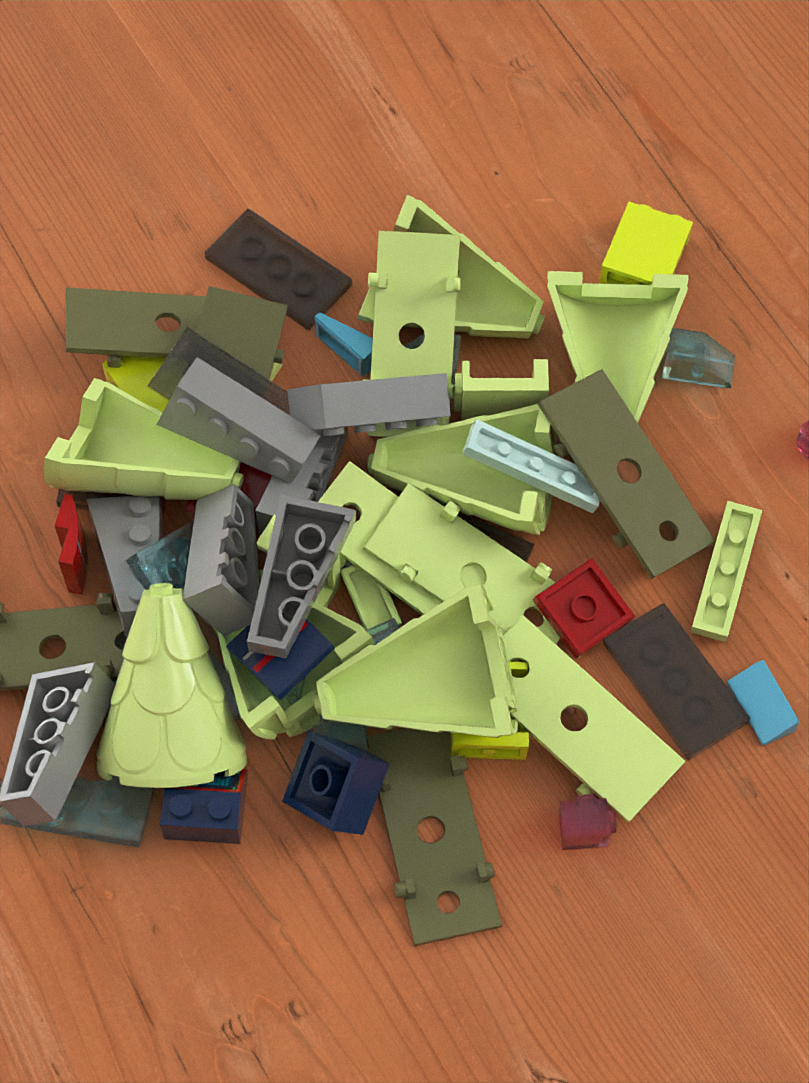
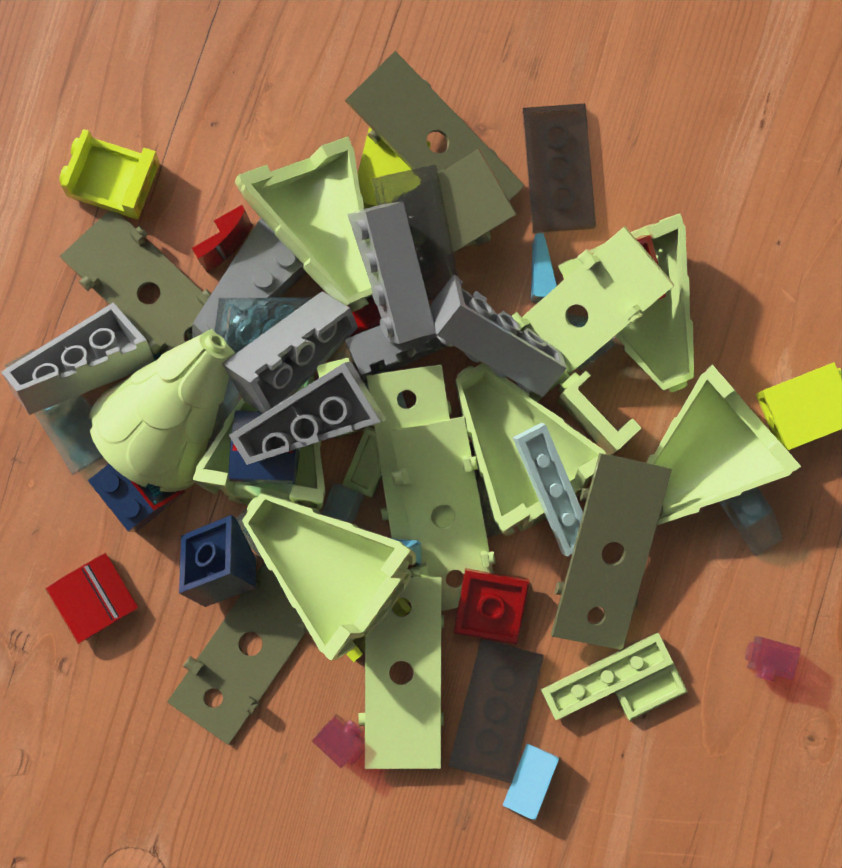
camera: 45 degrees right, 20 degrees up
(261, 926) = (91, 598): none -> red slope
(770, 551) = (651, 692): none -> yellowish green tile

